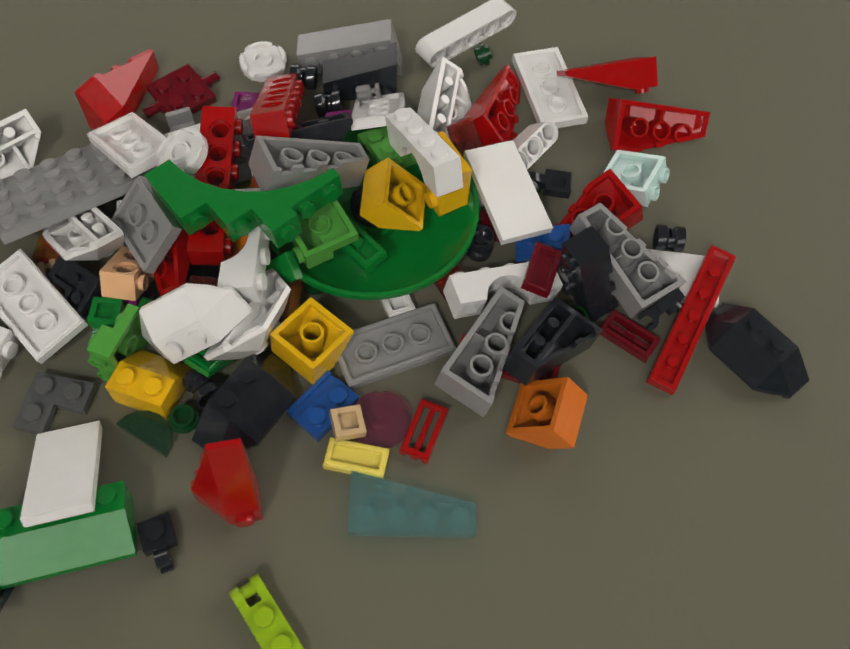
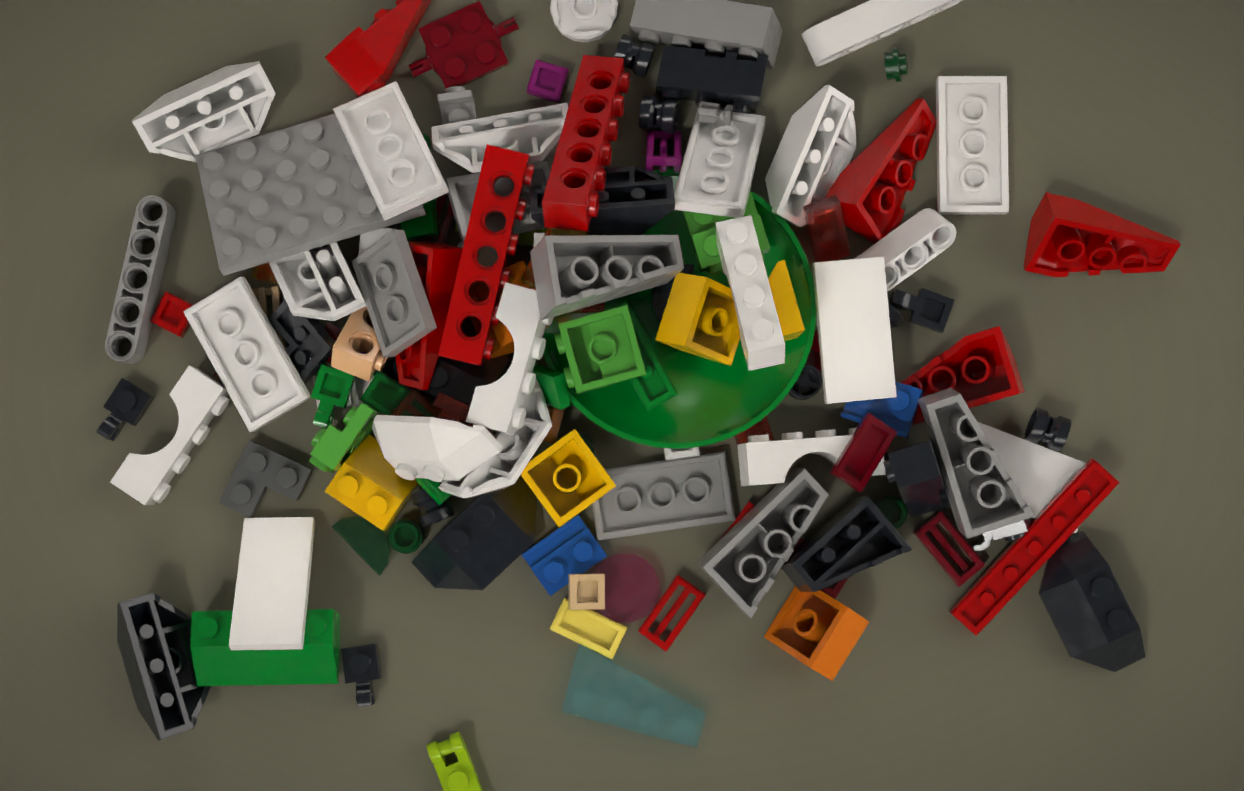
camera: 20 degrees right, 25 degrees up
(185, 149) = (451, 213): white tile -> none
(228, 483) = (445, 648): red wedge -> none
(239, 212) = (549, 346): green arch -> none
(627, 74) = (1085, 146): red wedge -> none
(640, 174) = (1037, 324): light aqua plate -> none

